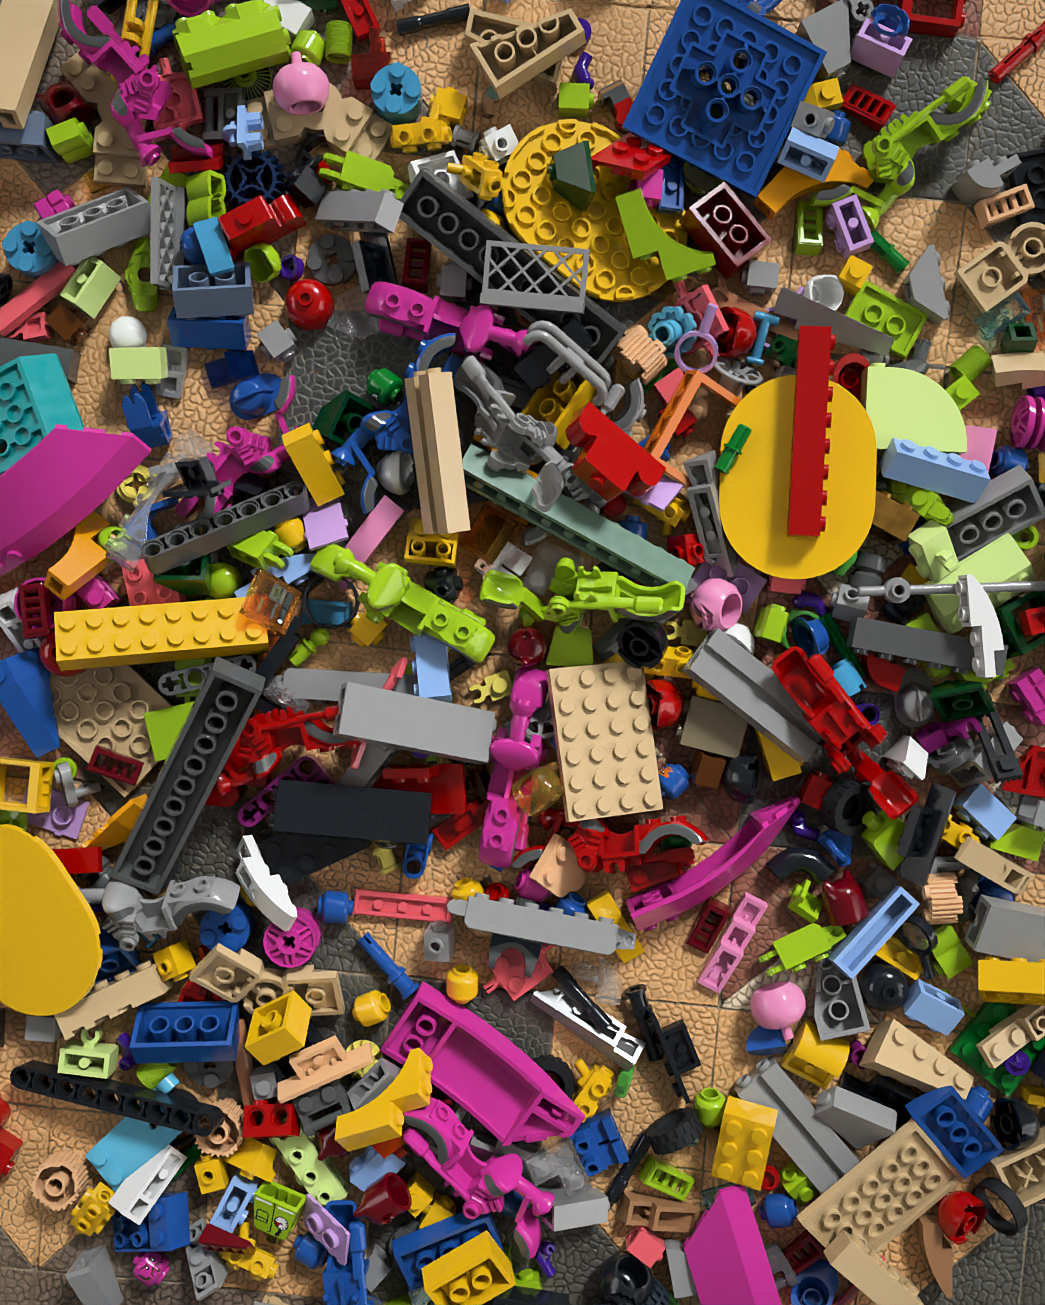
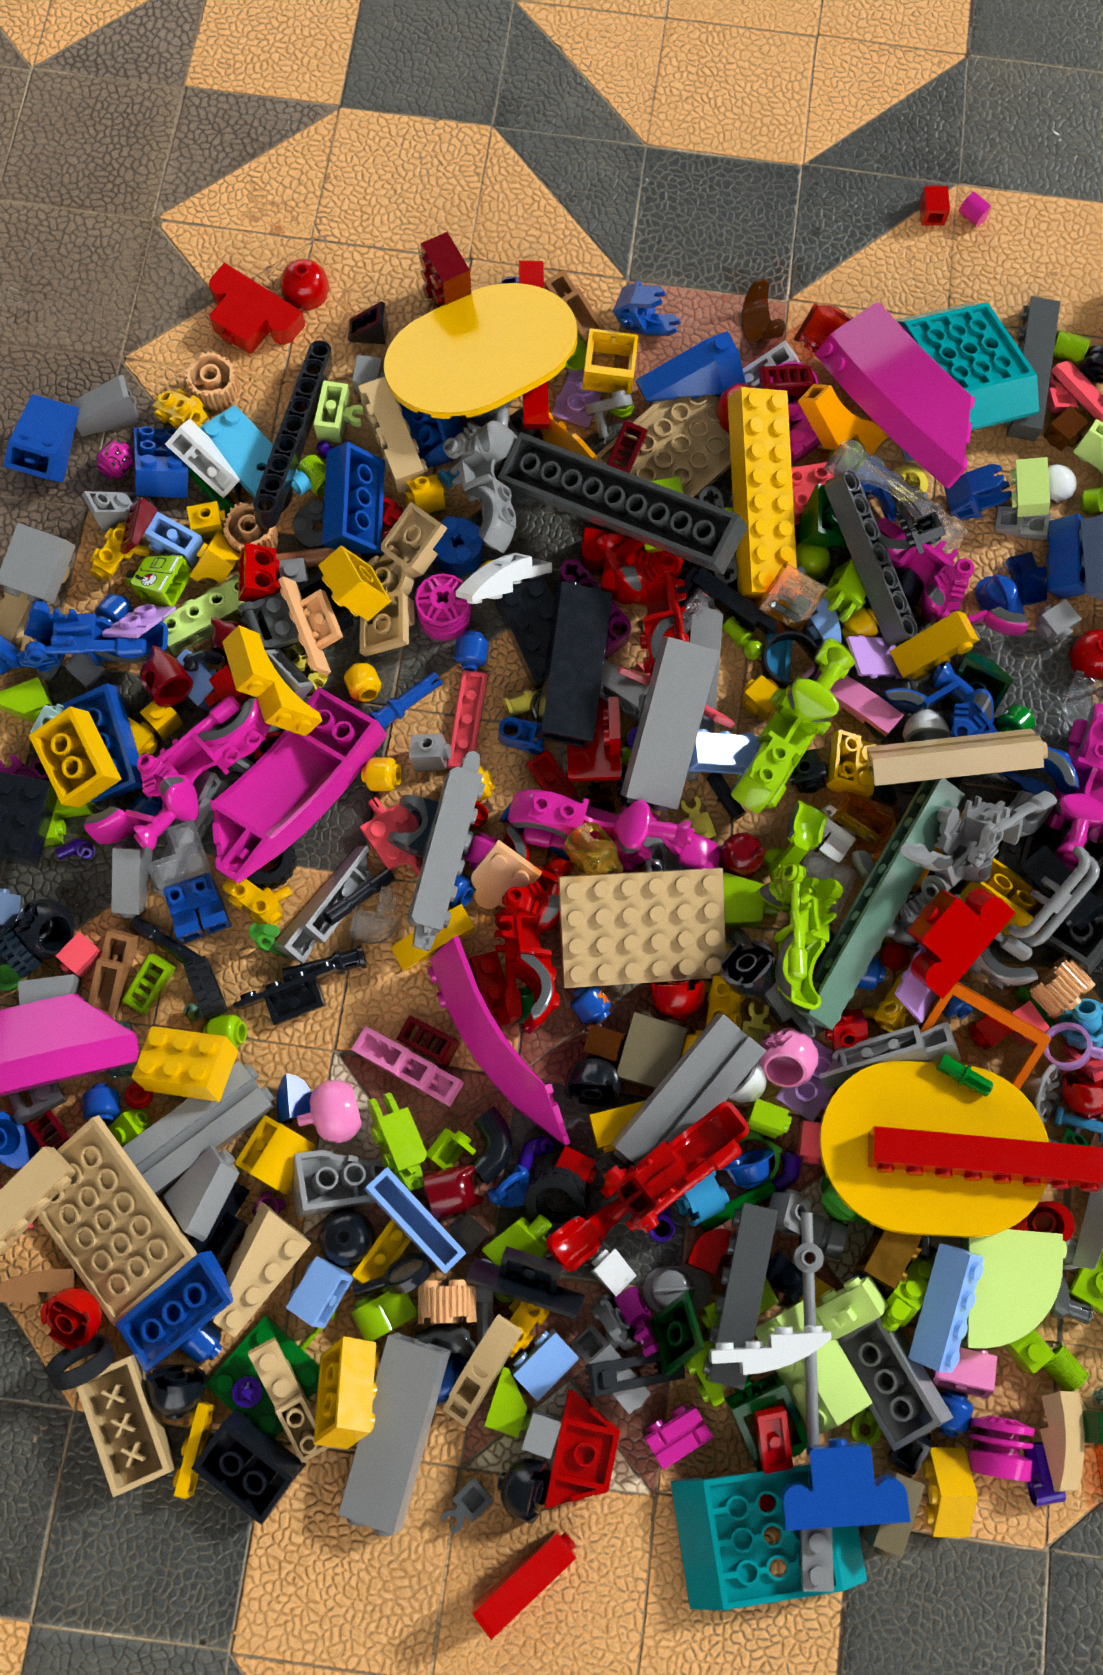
camera: 85 degrees right, 15 degrees down
(358, 1160) = (202, 656): none -> black arm

